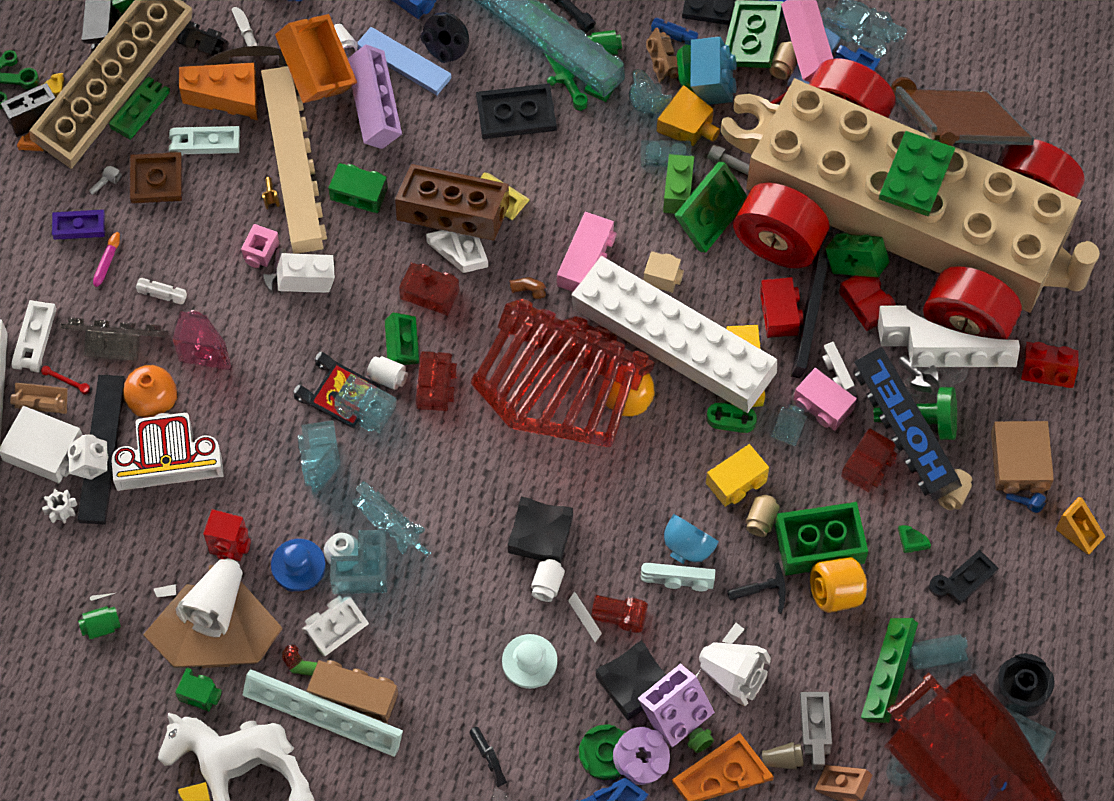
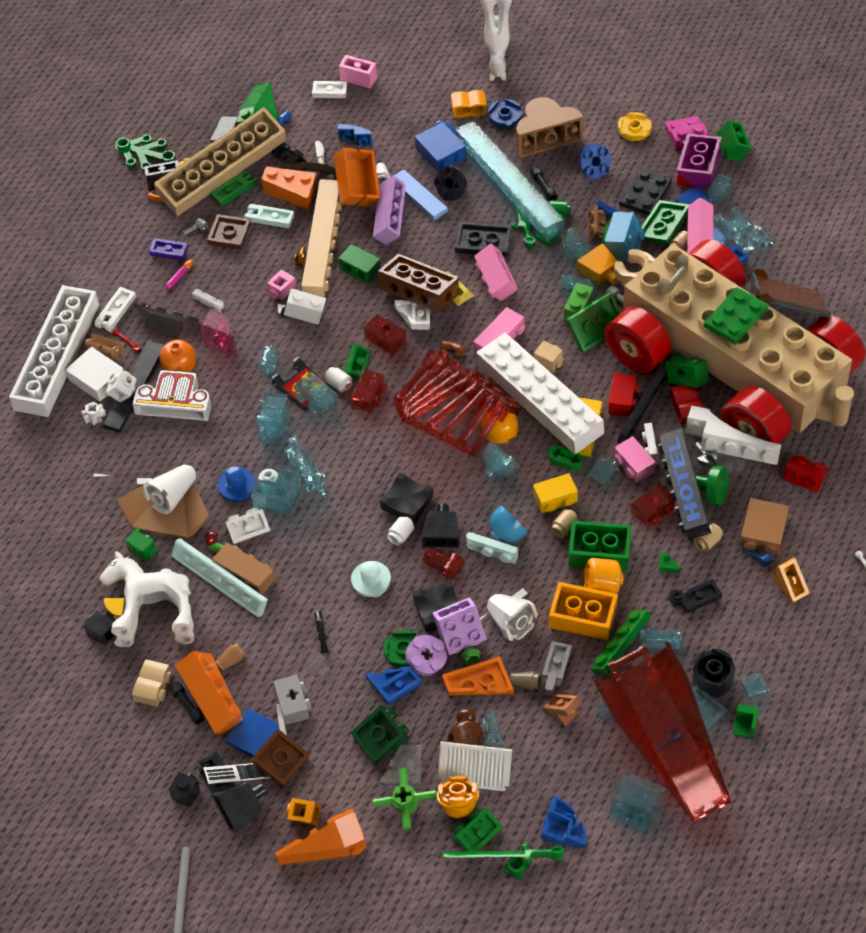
camera: 20 degrees right, 10 degrees down
(99, 622) = (93, 489): green brick -> none
(226, 535) = (194, 452): red brick -> none
(280, 365) = (268, 360): none -> clear light blue brick
(551, 161) = (495, 272): none -> bright pink brick
(585, 617) = (418, 559): white sticker -> none
(602, 563) = (441, 528): none -> black torso
(646, 448) = (498, 462): none -> clear light blue cylinder
(754, 588) = (544, 569): black piece -> none
(825, 114) = (665, 286): none -> dark tan bar
(829, 639) = (583, 611): none -> light orange brick
(1078, 689) = (754, 686): none -> clear light blue plate
(1083, 742) = (745, 721): none -> green panel

